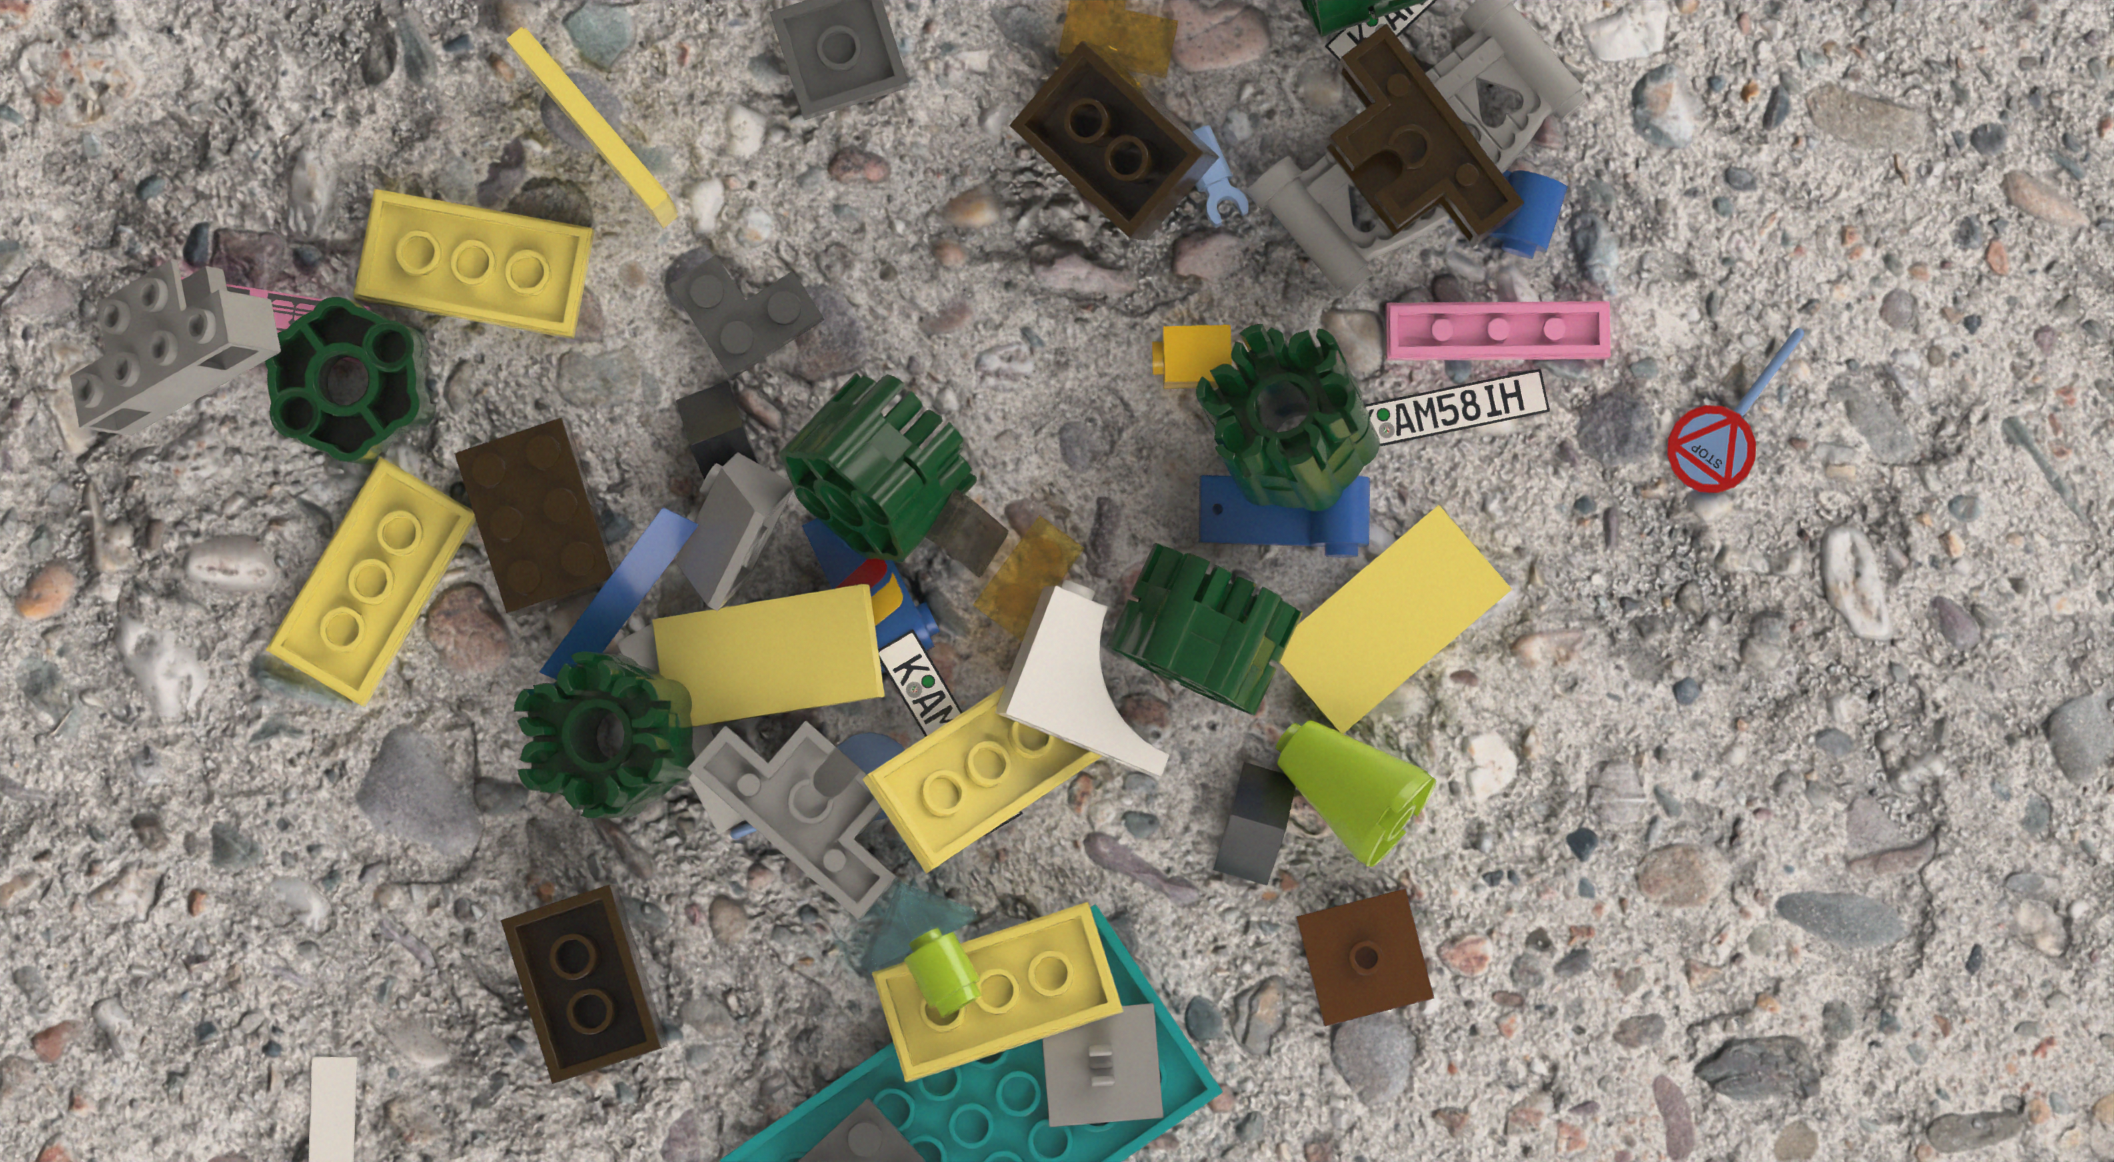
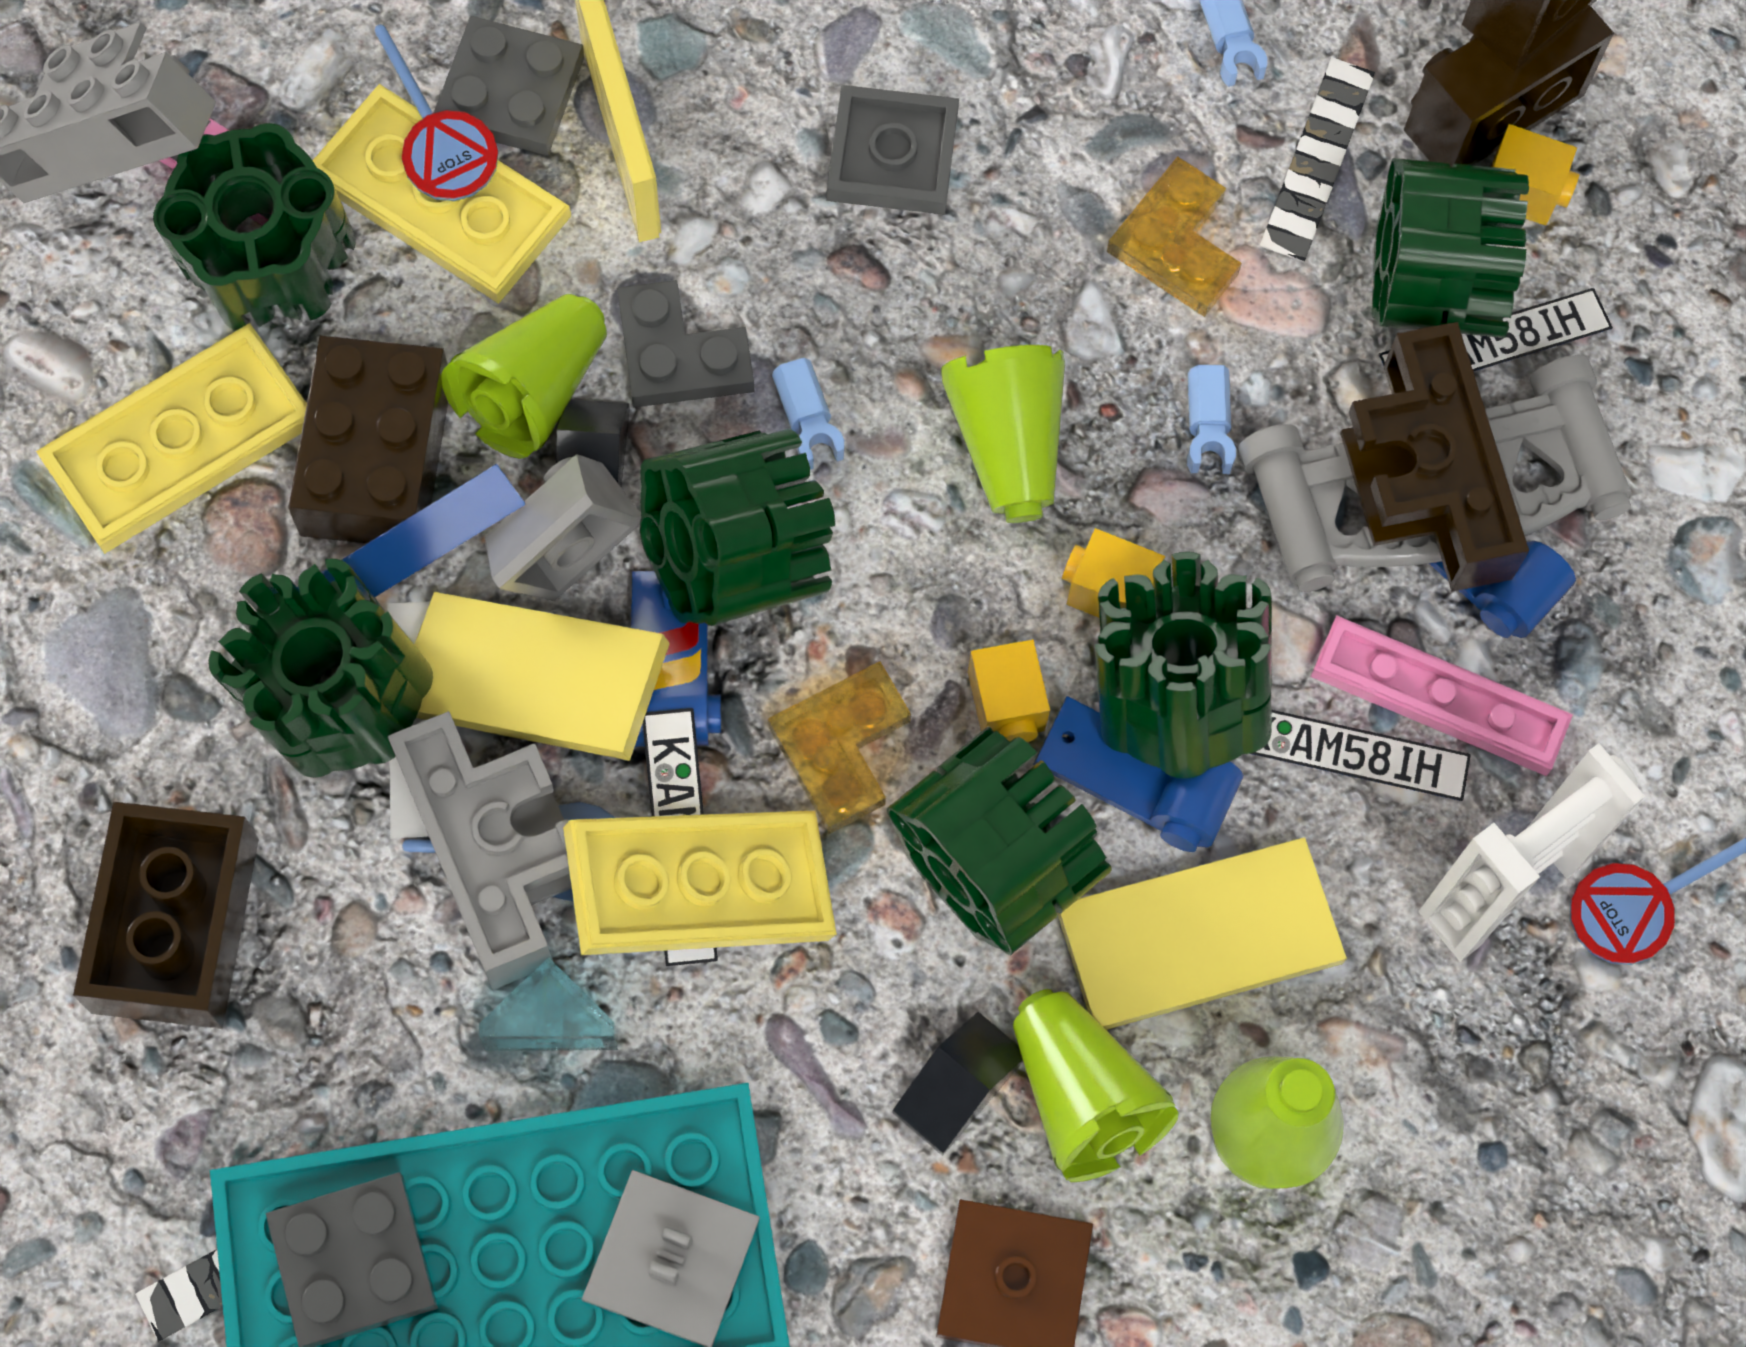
camera: 20 degrees right, 15 degrees down
(467, 226) = (447, 151): none -> piece
(483, 136) = (512, 82): none -> dark grey plate
(637, 398) = (526, 374): none -> lime cone
(877, 320) = (807, 408): none -> light blue bar
(943, 971) = (547, 1068): lime brick -> none
(967, 534) = (795, 639): clear smoke tile -> none
(1032, 986) = (596, 1125): light yellow tile -> none
(1055, 265) = (1011, 424): none -> lime cone
(1061, 683) = (819, 835): white arch -> none
(1114, 141) = (1127, 332): dark brown brick -> none
(1154, 494) = (1009, 690): none -> yellow brick
(1511, 742) = (1277, 1122): none -> lime cone
(1604, 503) = (1502, 868): none -> white fence

